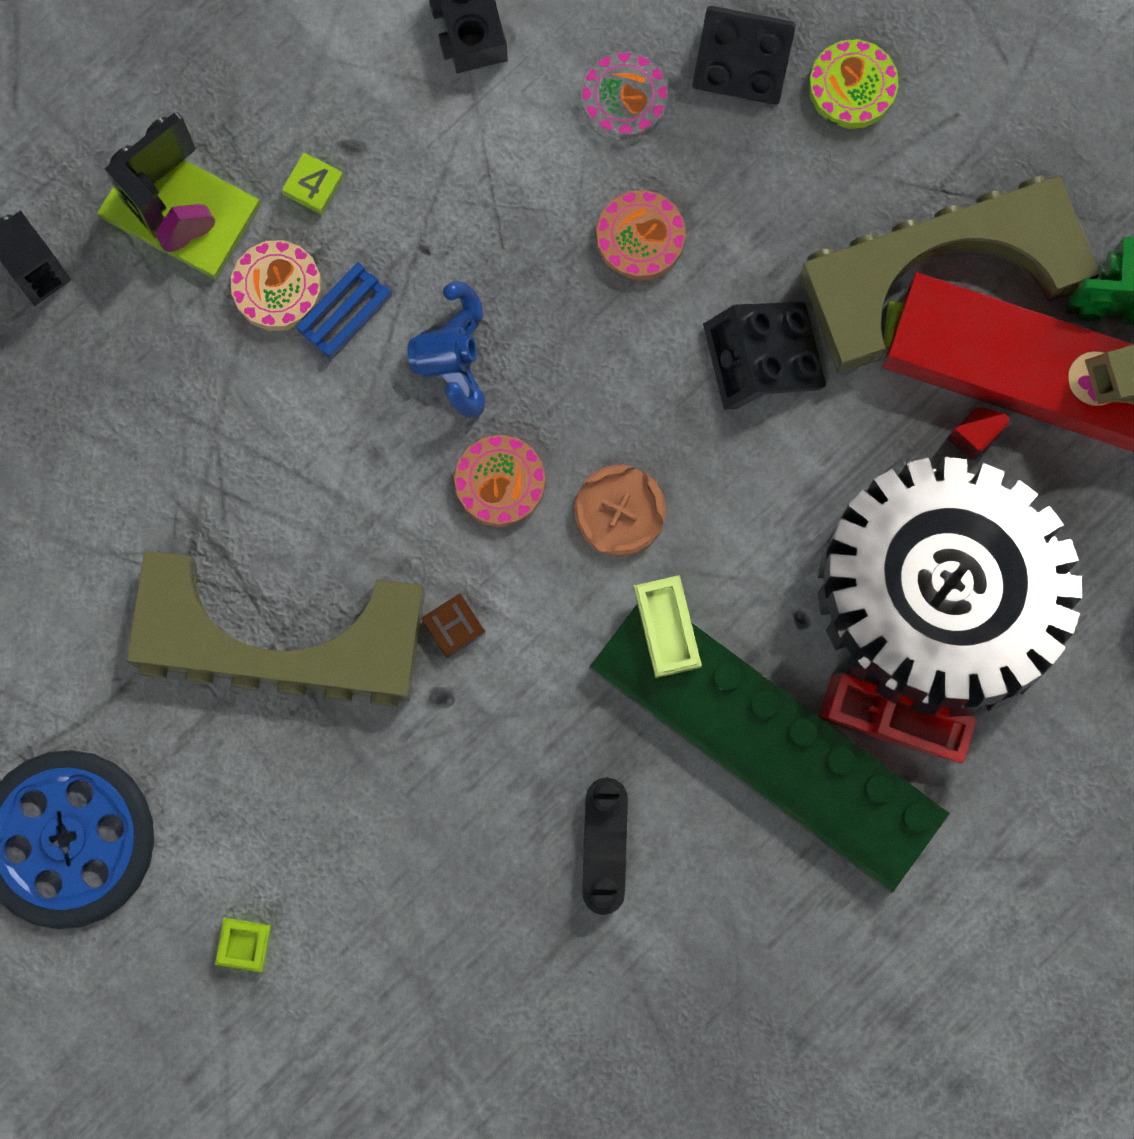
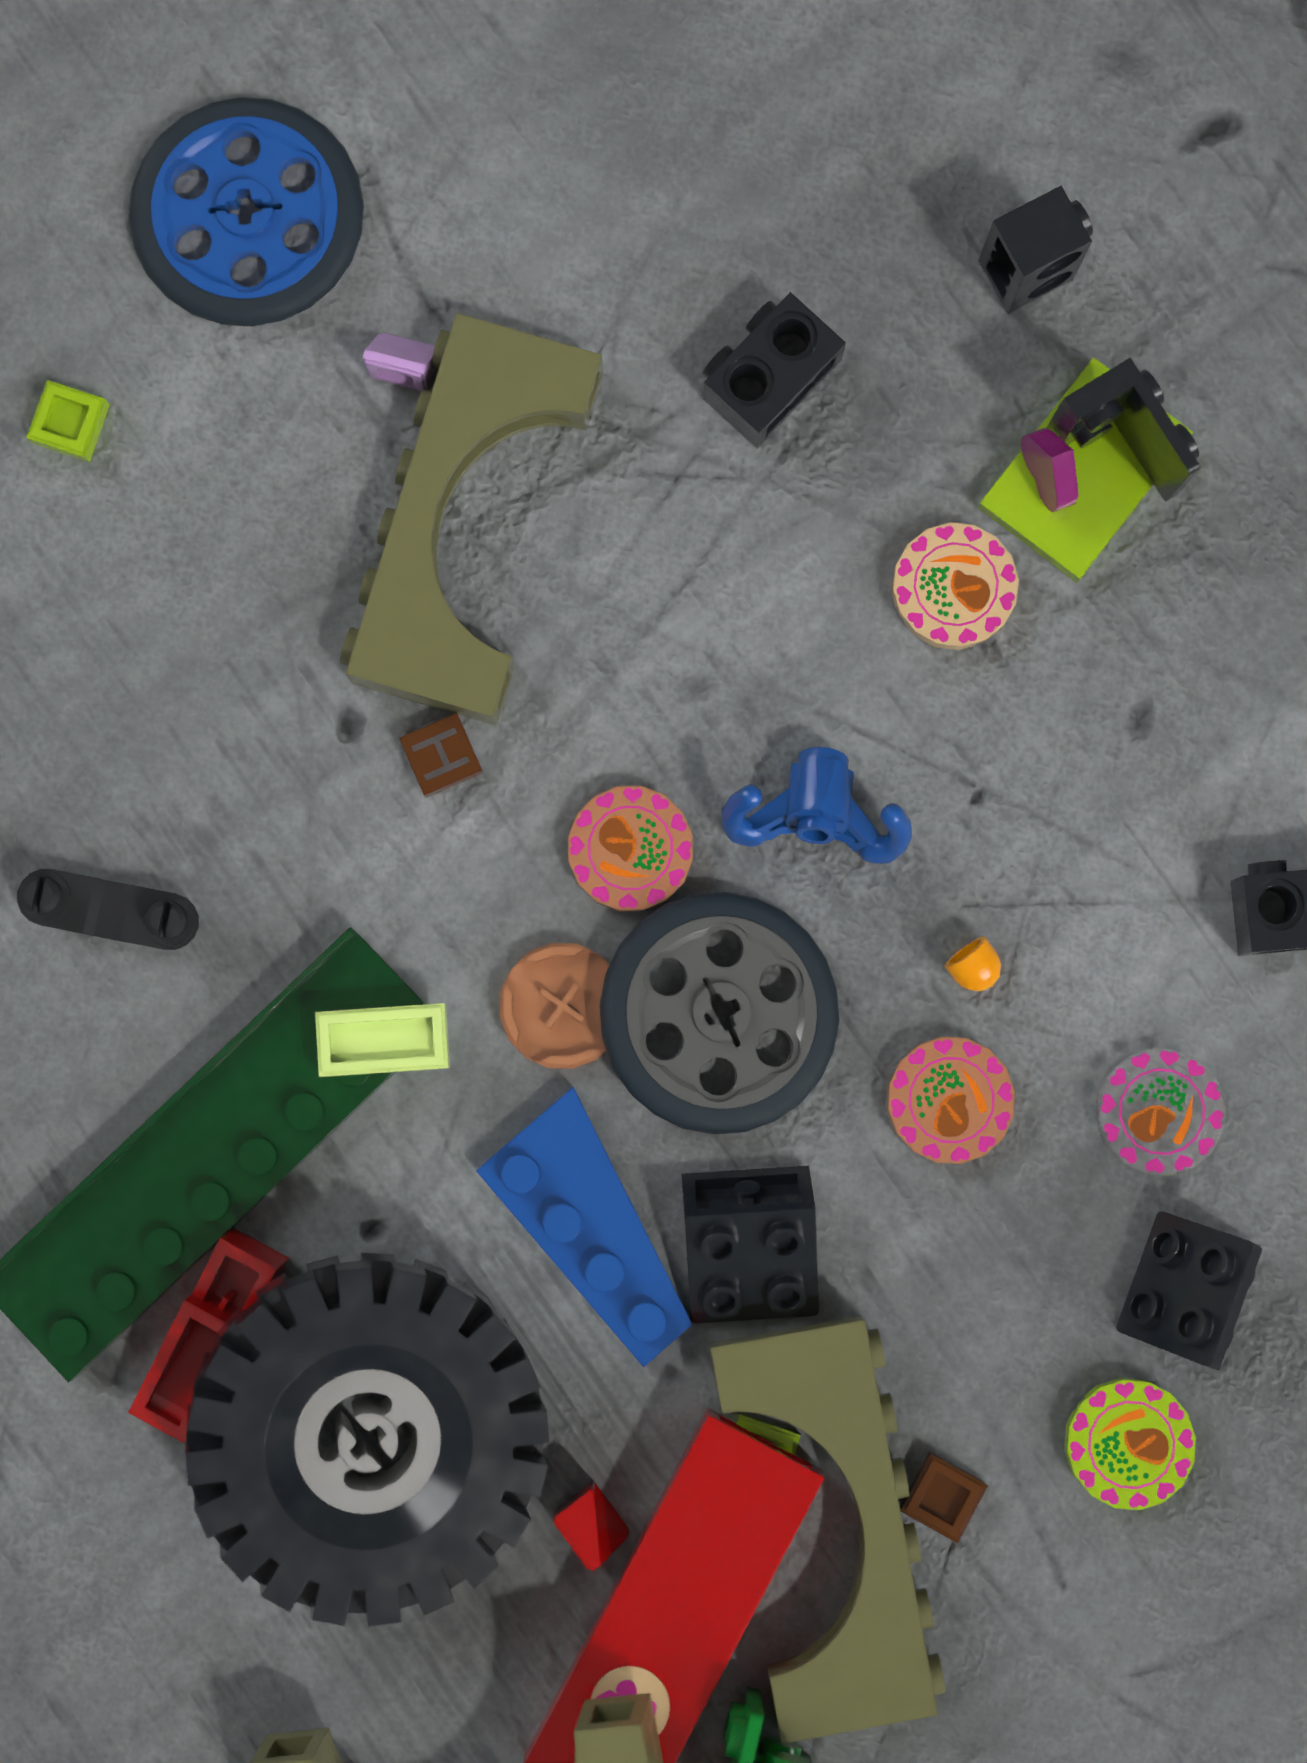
camera: 100 degrees right, 5 degrees up
(142, 425) = (783, 377): none -> black brick
(164, 702) = (400, 361): none -> lavender slope
(312, 183) = (1094, 656): lime tile -> none
(355, 274) = (922, 656): blue tile -> none
(543, 231) = (975, 965): none -> light orange hinge
(613, 456) = (673, 1085): none -> wedge
(766, 472) = (581, 1216): none -> blue wing
(912, 198) = (943, 1497): none -> reddish brown tile

